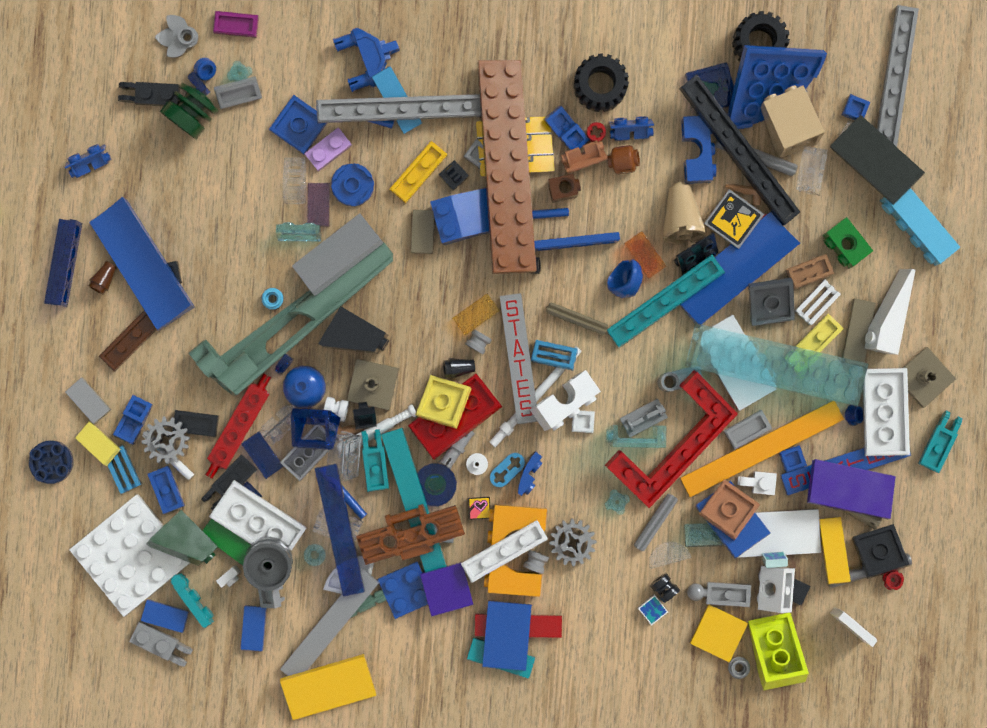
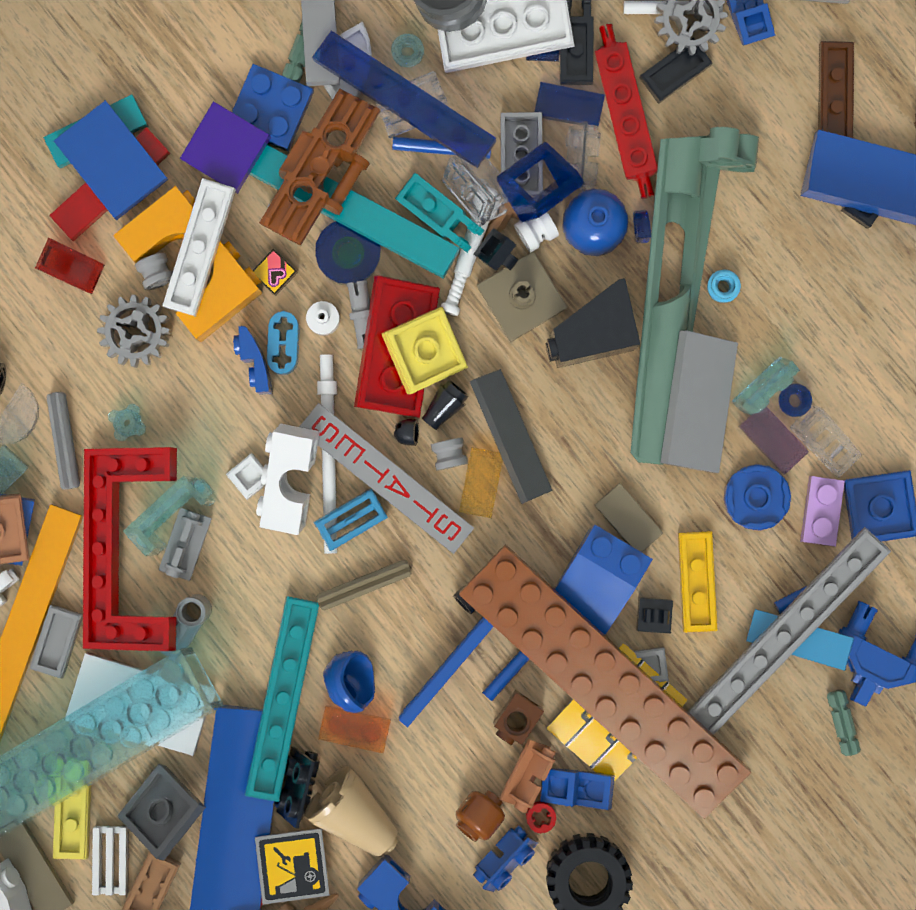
camera: 140 degrees right, 0 degrees up
(291, 206) = (804, 396): none -> clear blue plate
(413, 42) = (843, 723): none -> sand green axle
(441, 322) = (511, 436): none -> dark grey tile
(488, 371) = (407, 432): none -> black hinge
(574, 602) = (69, 266): none -> clear red slope

